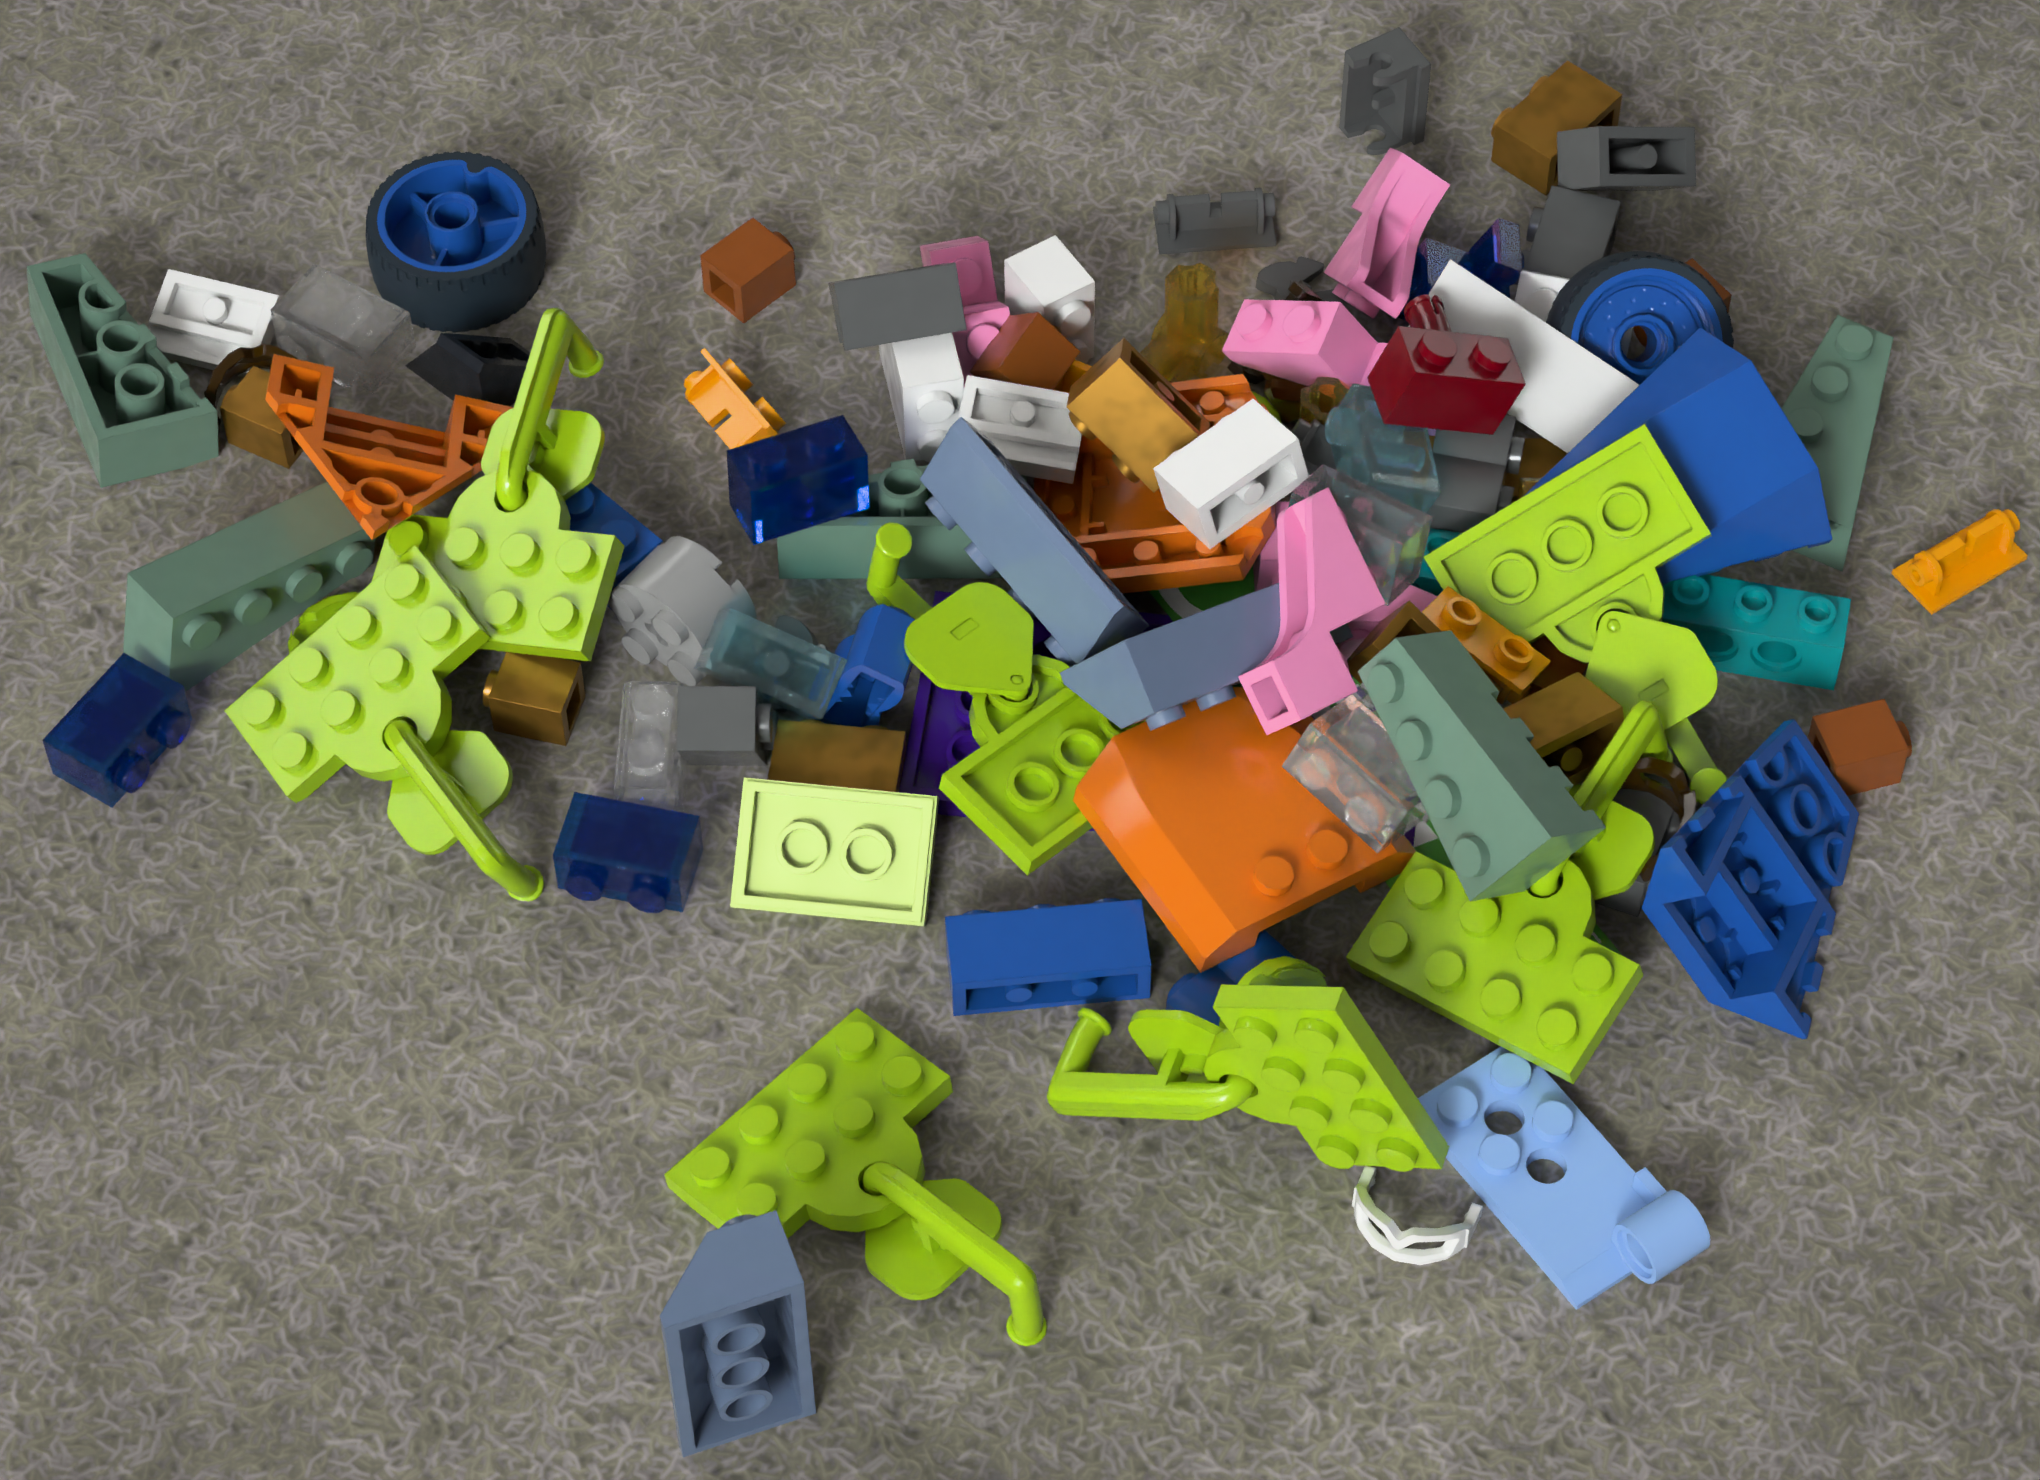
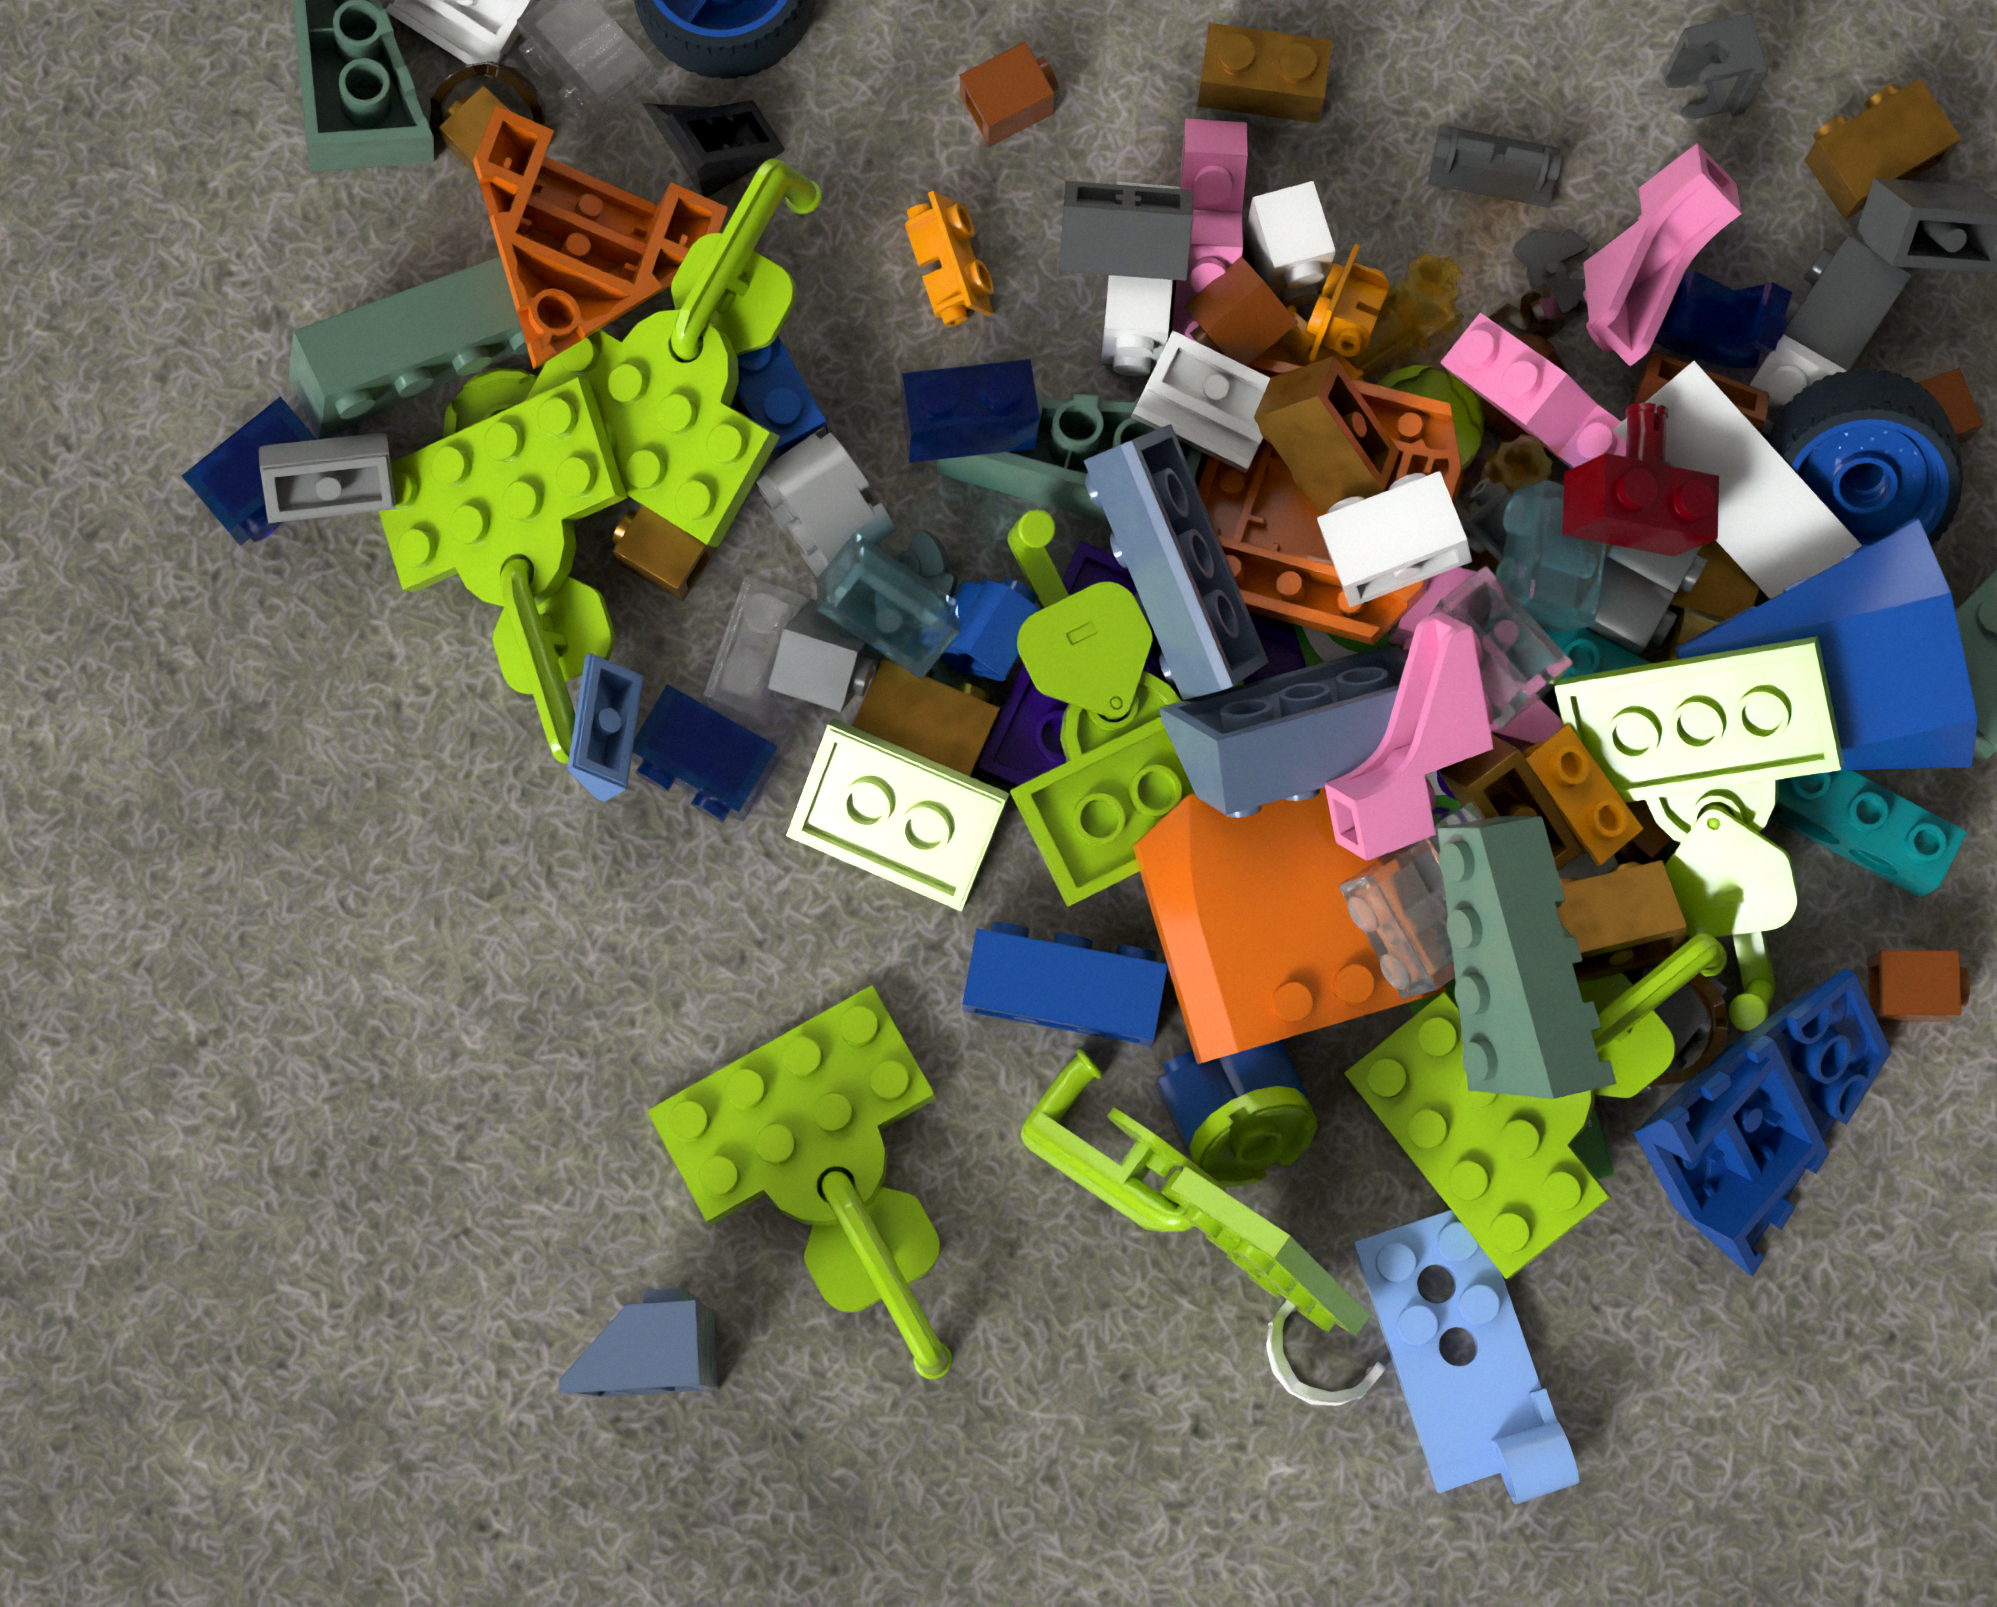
camera: 15 degrees right, 25 degrees up
(190, 705) = (326, 477): none -> light grey slope
(526, 839) = (605, 727): none -> medium blue slope
(980, 196) = (1264, 73): none -> pearl gold brick
(1118, 324) = (1348, 307): none -> light orange hinge

